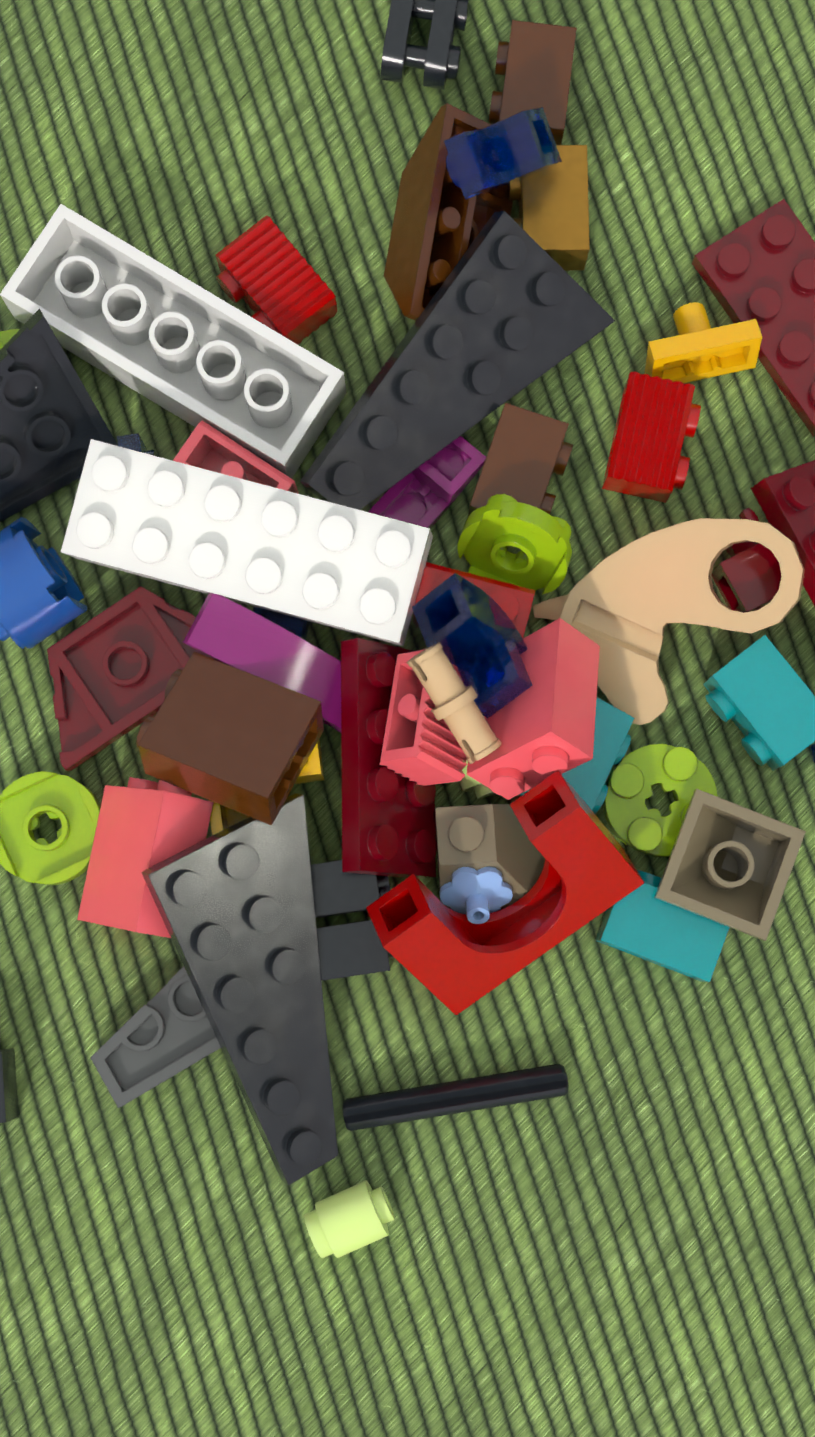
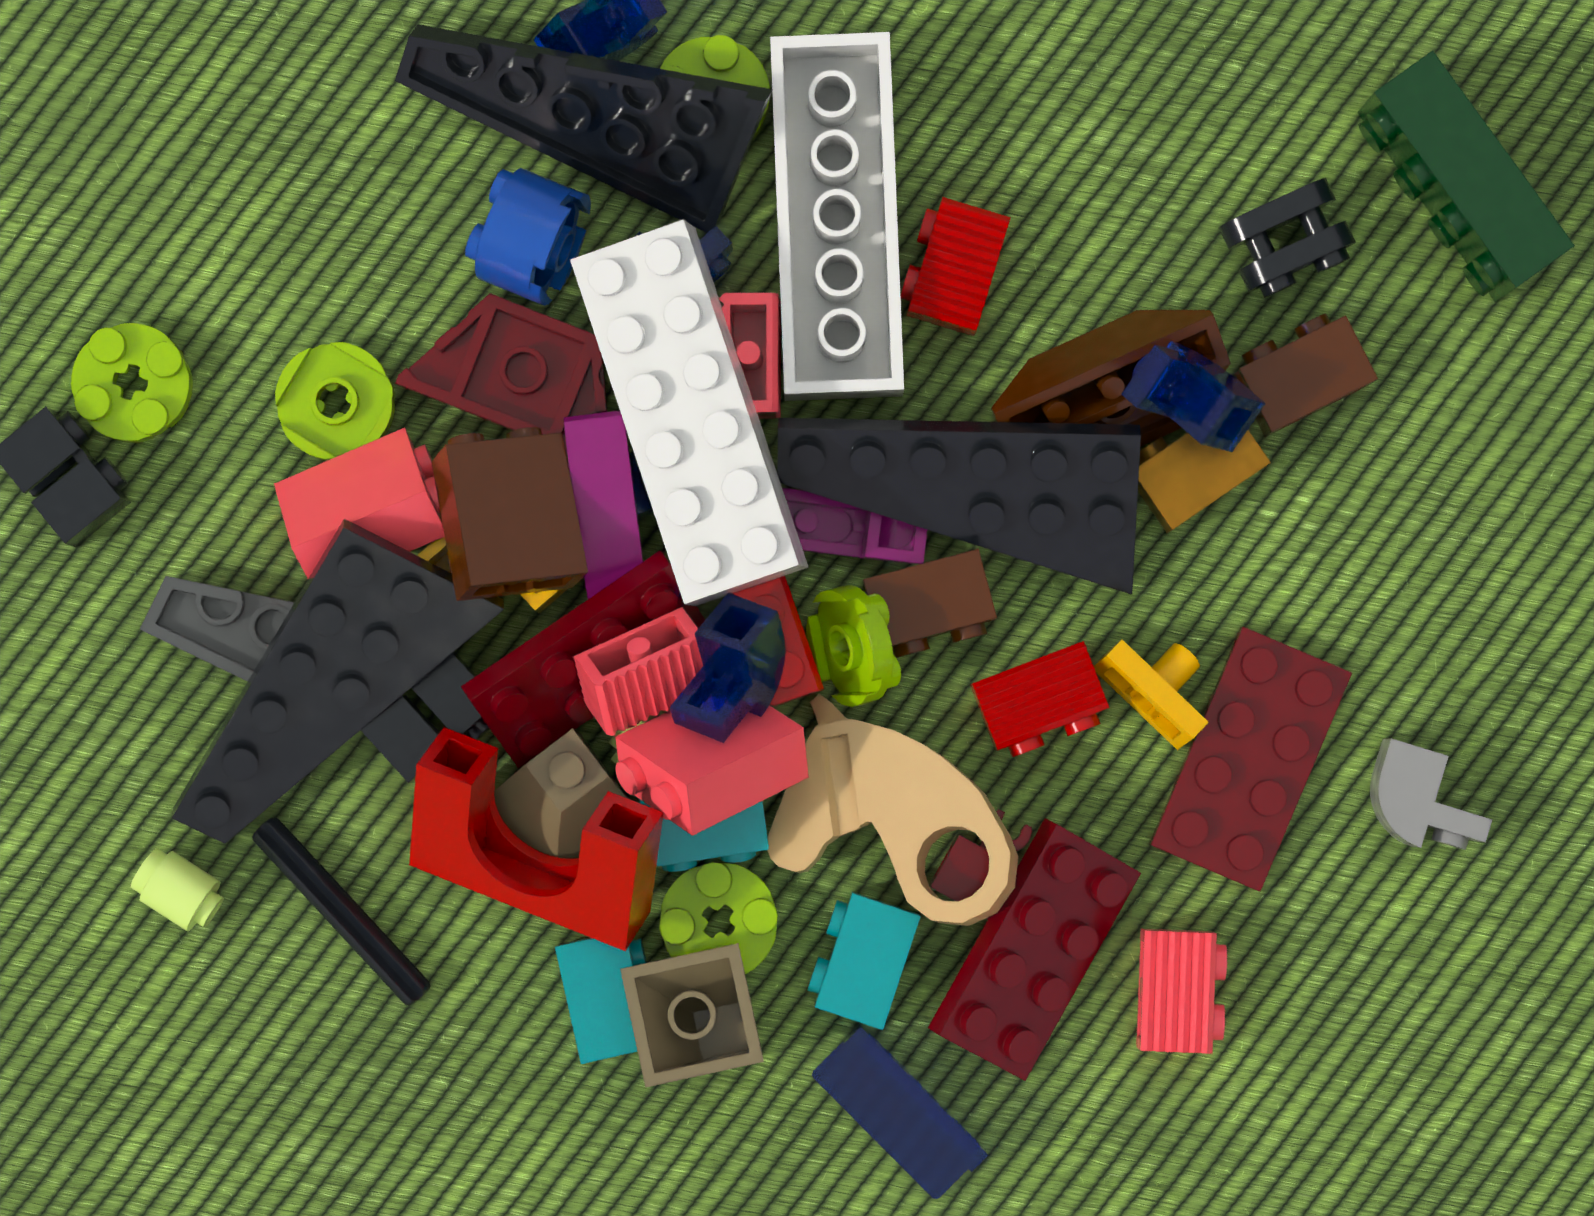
camera: 60 degrees right, 5 degrees up
(454, 703) = (662, 686): tan pin -> none
(476, 893) = (524, 813): light blue plant -> none

